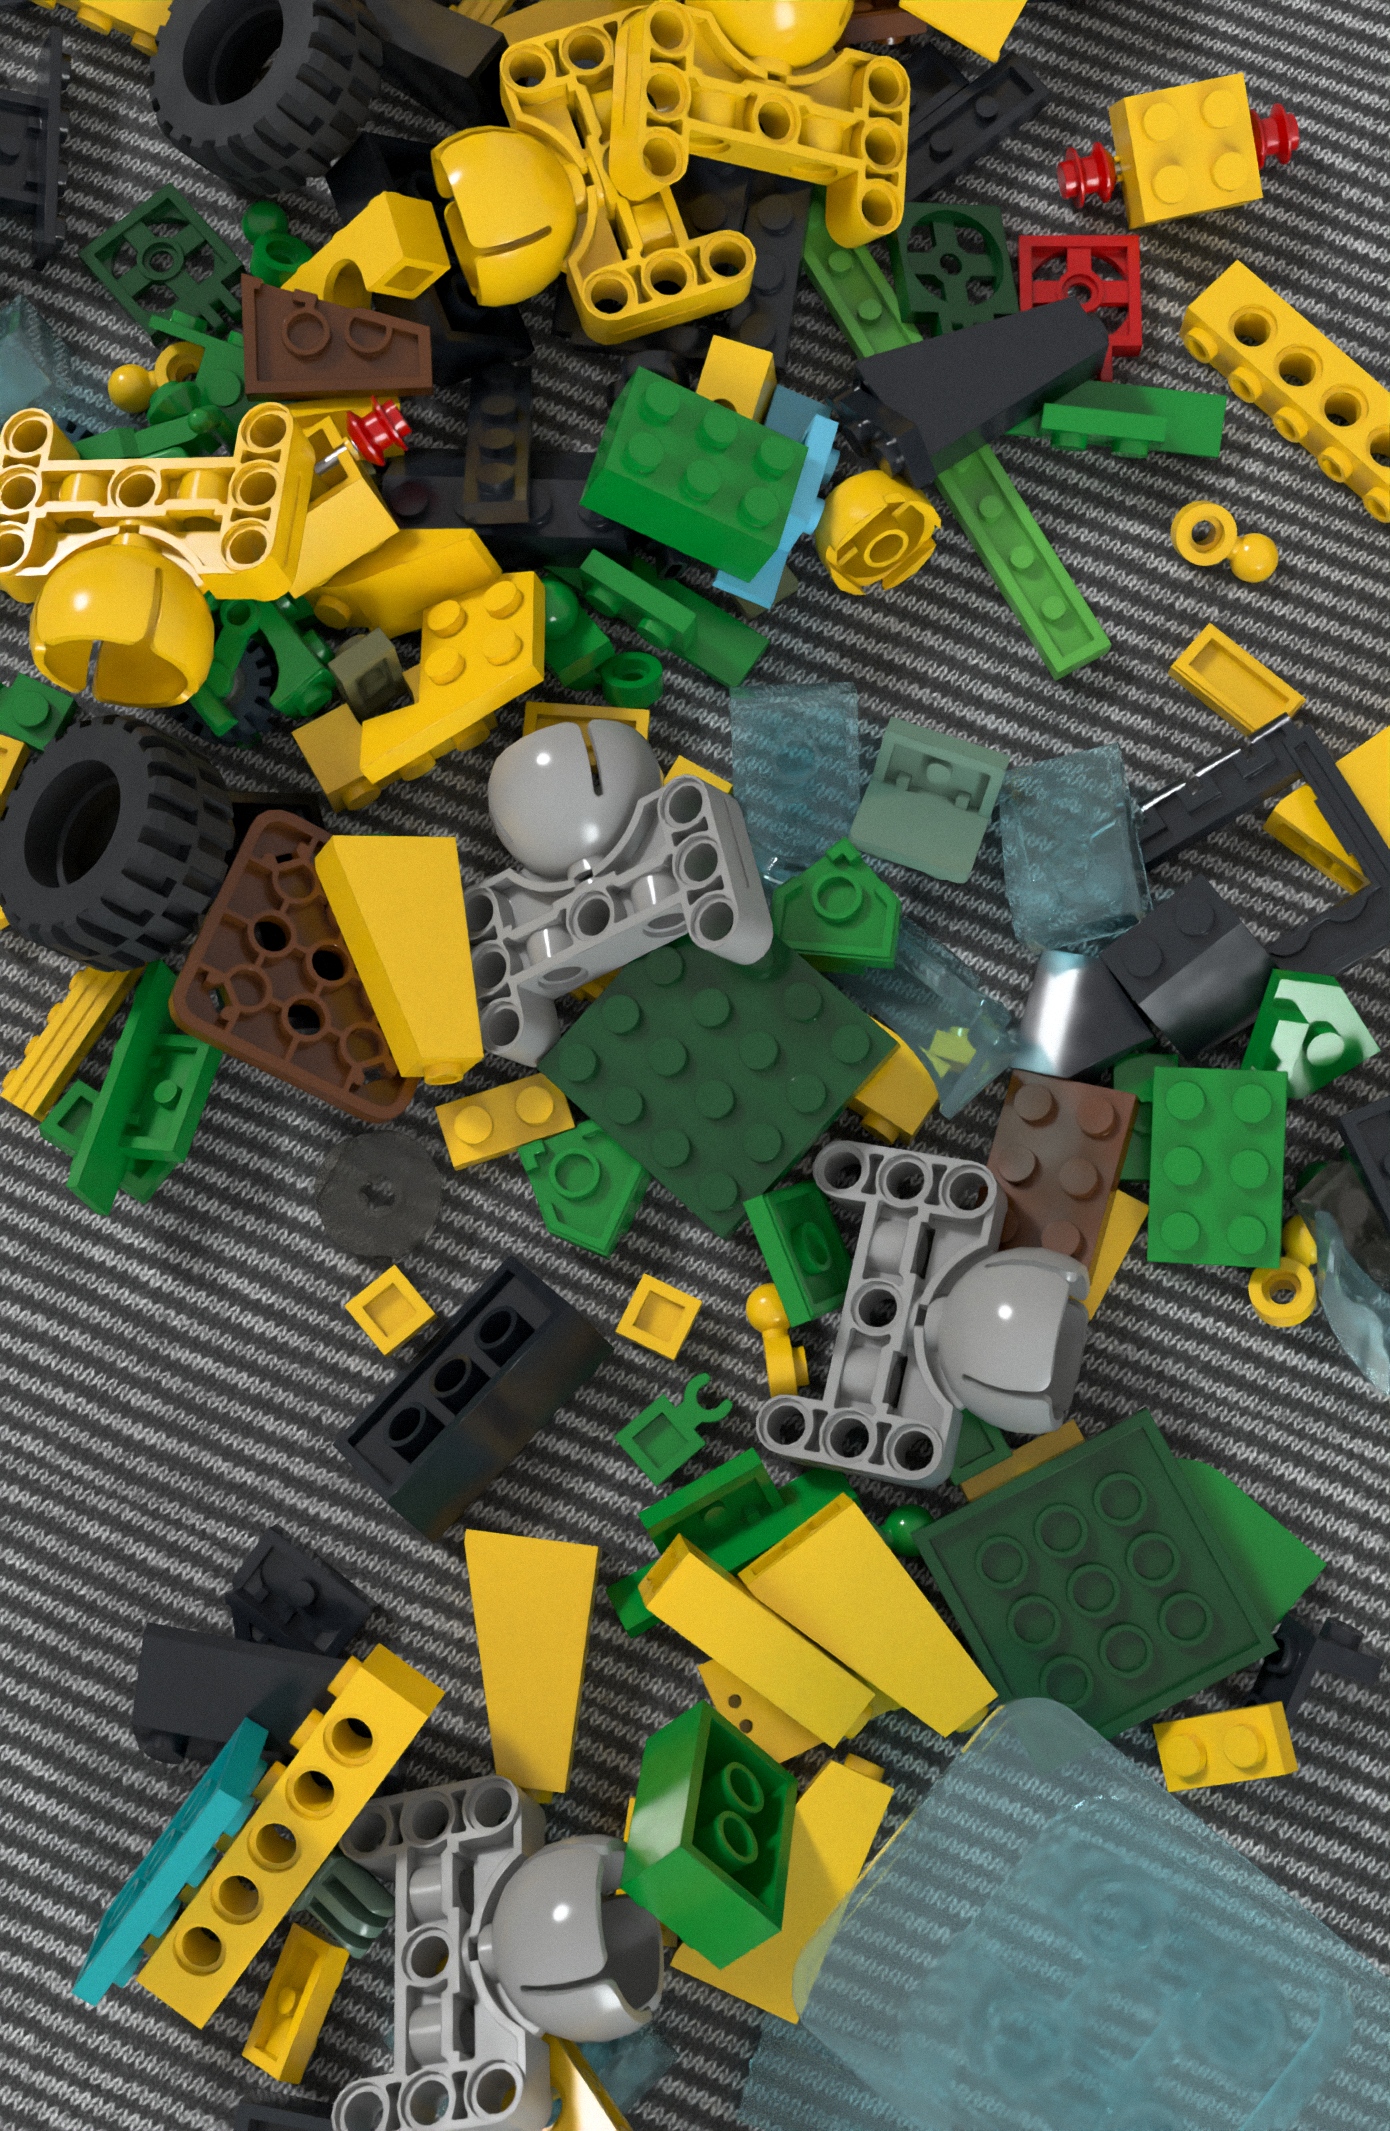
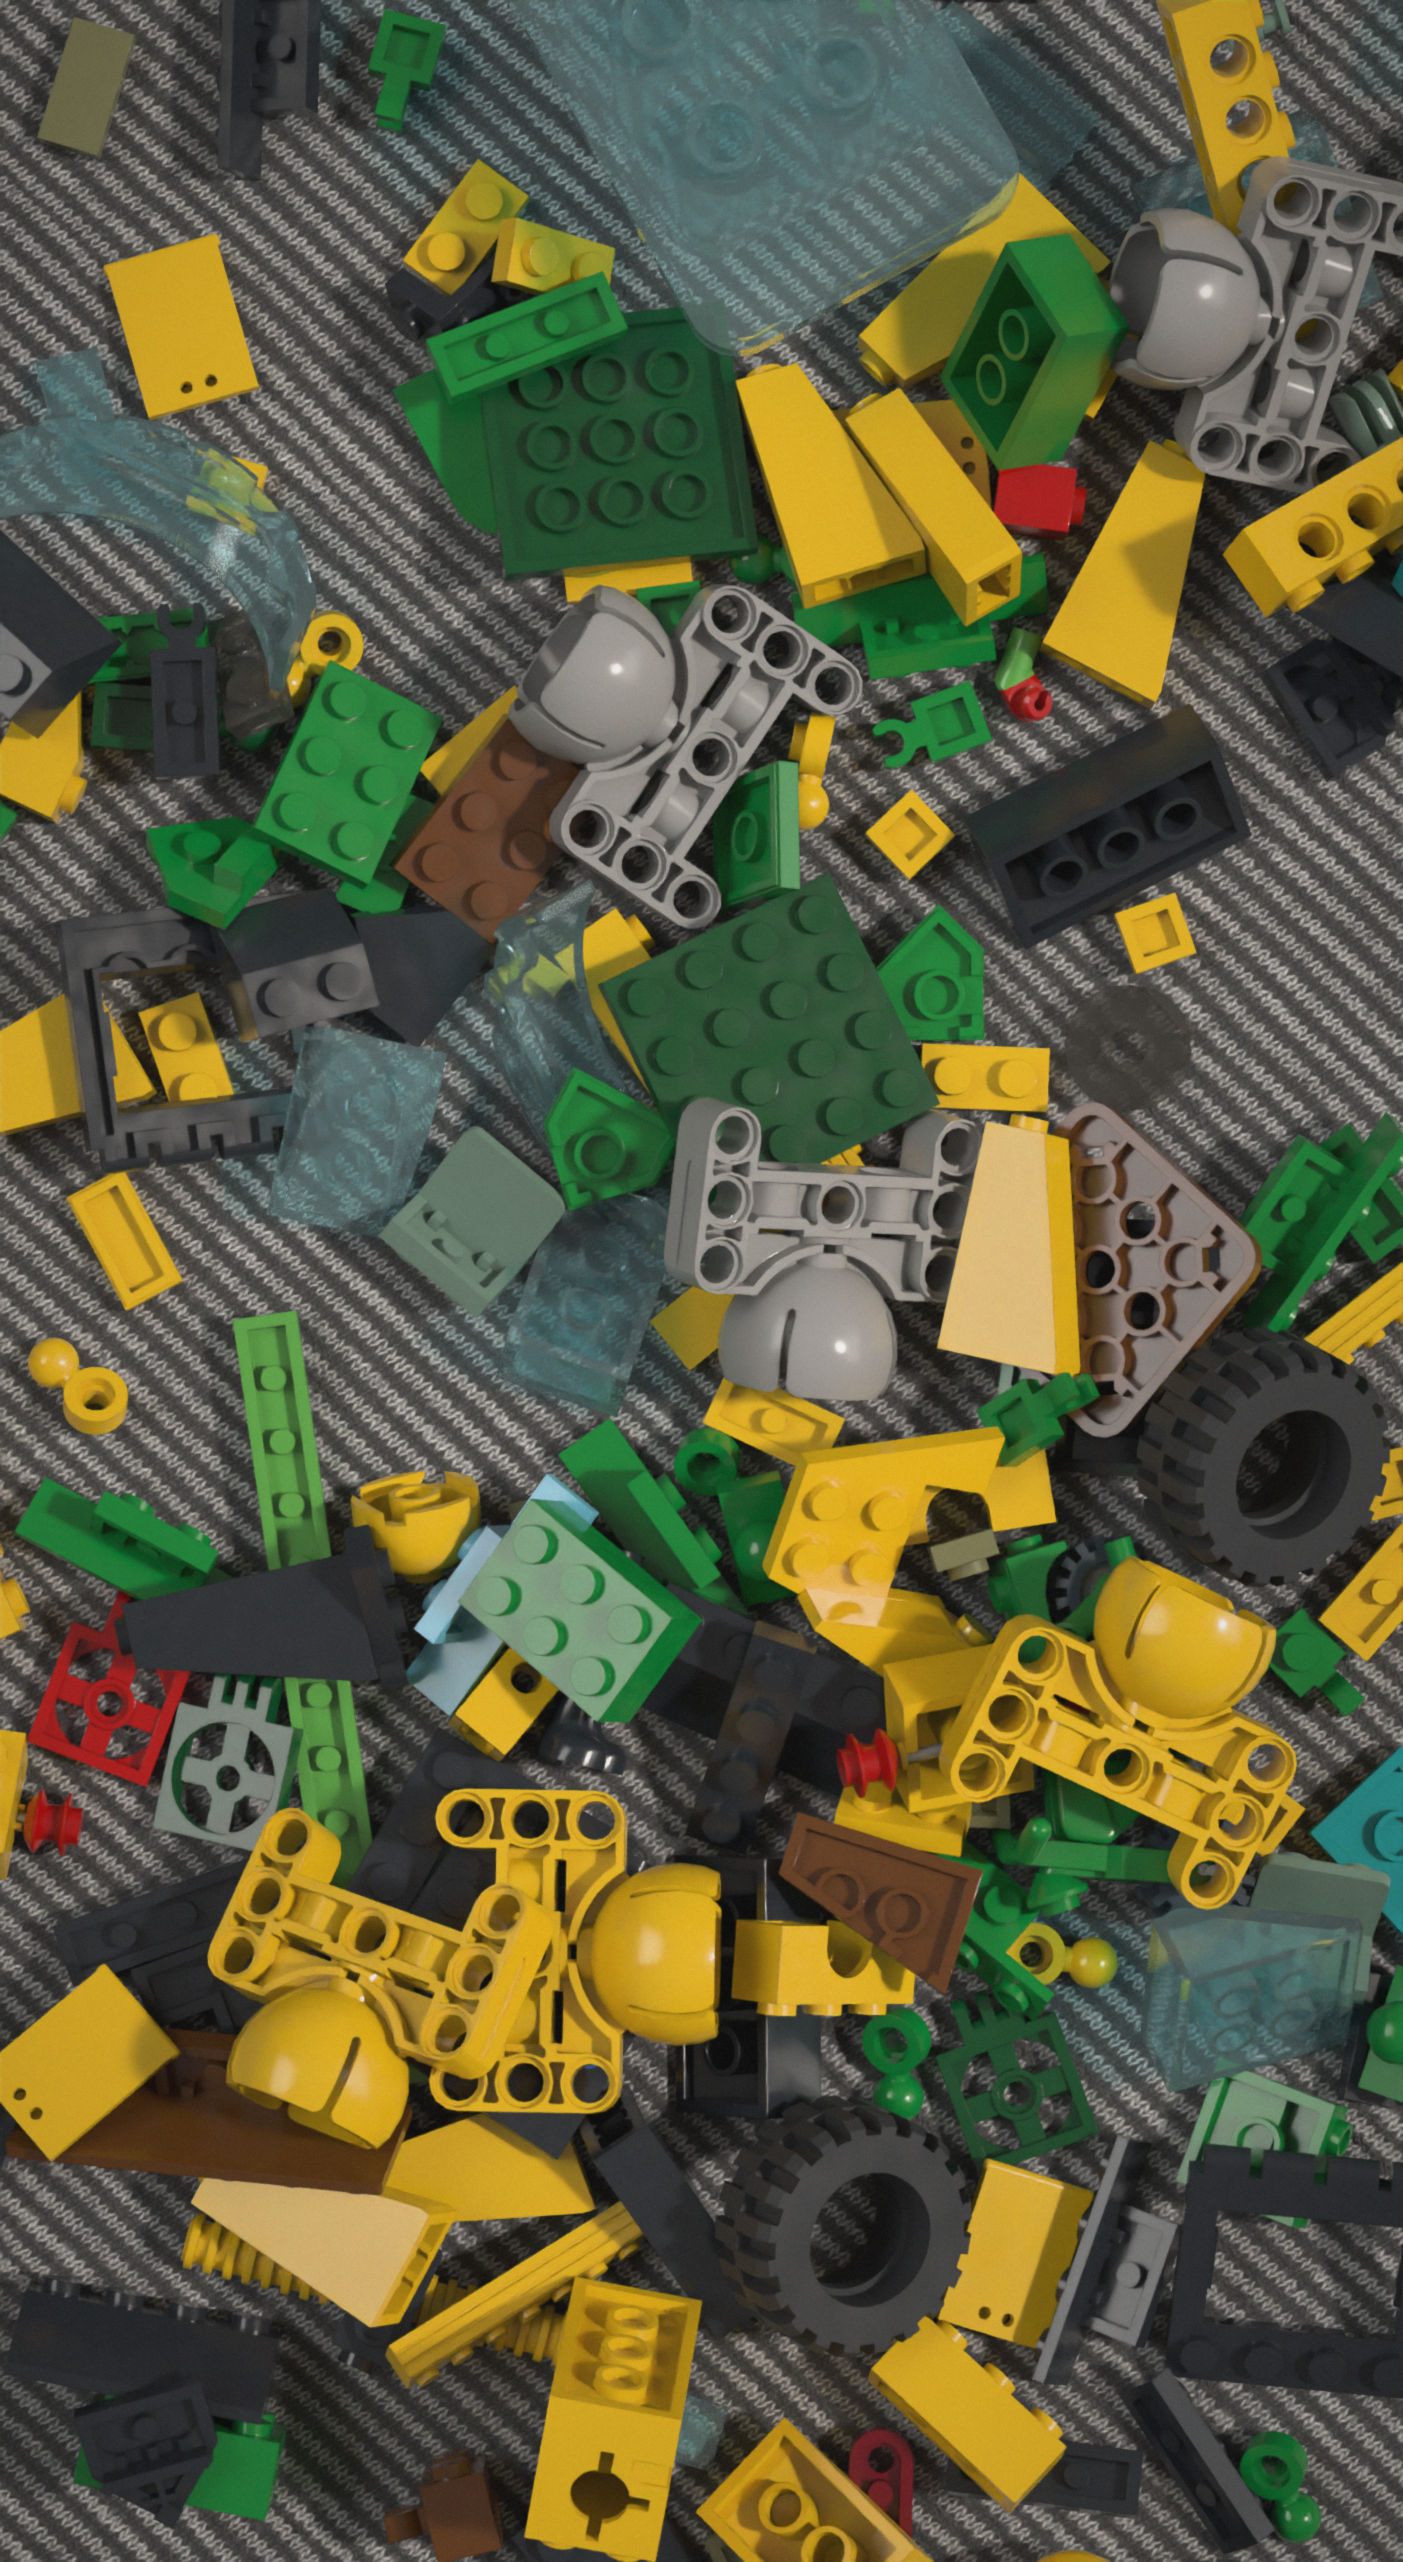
camera: 170 degrees left, 10 degrees up
(114, 137) = (1016, 2253): none -> yellow container
(345, 806) = (1030, 1413): none -> green plate
(609, 1507) = (1017, 680): none -> arm
(653, 1691) = (1039, 501): none -> red brick
(1223, 1656) = (526, 337): none -> green plate
(1251, 870) = (186, 1049): none -> yellow plate
(1326, 1750) = (465, 229): none -> yellow plate

